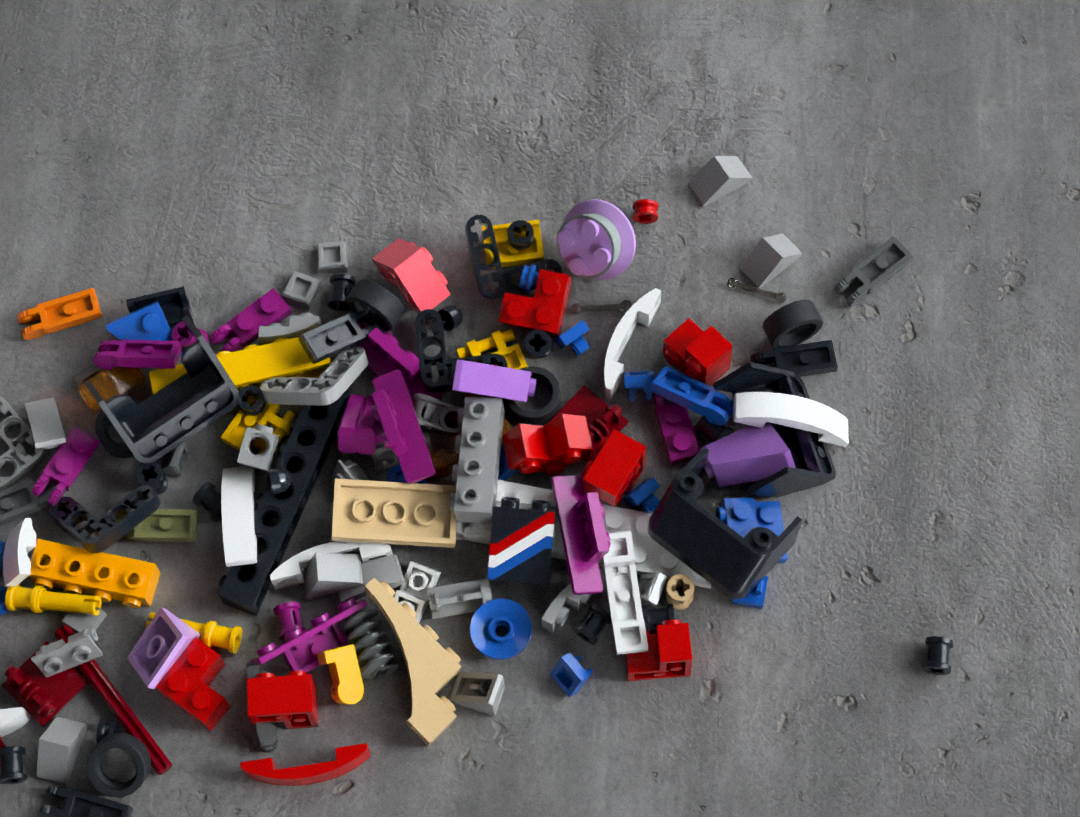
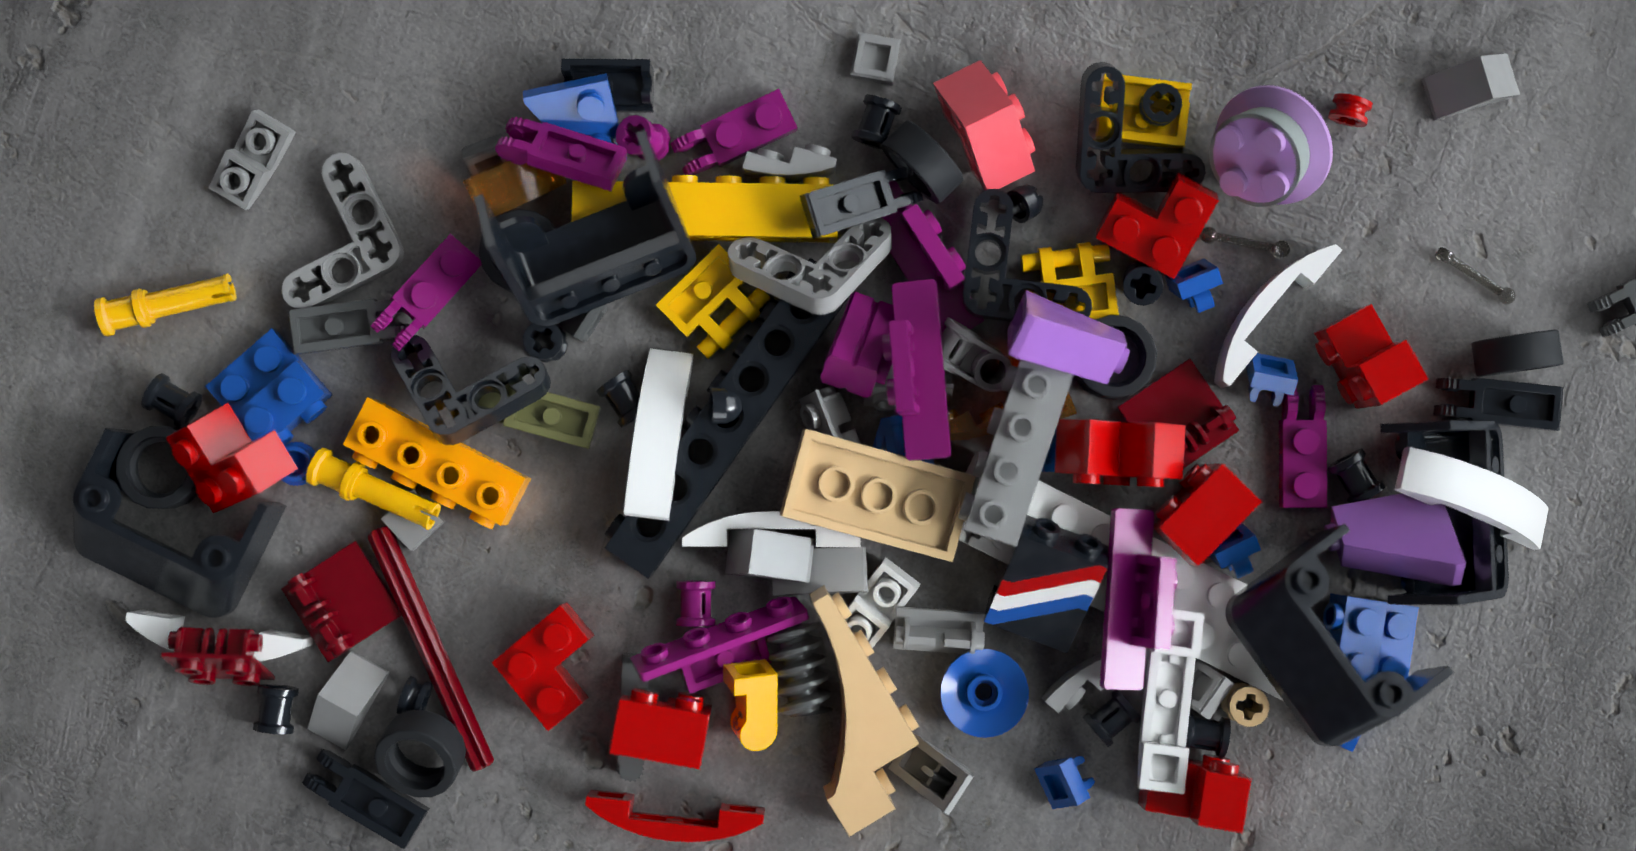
camera: 10 degrees right, 20 degrees up
(15, 560) = (340, 395): white slope -> none
(45, 423) = (408, 218): light grey slope -> none
(60, 314) = (465, 47): orange hinge -> none
(61, 656) = (360, 574): light grey hinge -> none
(160, 647) = (510, 603): lavender slope -> none
(214, 634) = (580, 592): yellow pin -> none
(244, 406) = (721, 254): black bush -> none
(263, 460) = (701, 362): light grey brick -> none
(301, 289) = (819, 98): light grey tile -> none
(529, 278) = (1156, 182): blue plate -> none
(693, 395) = (1345, 428): blue hinge -> none
(769, 259) = (1508, 234): light grey slope -> none

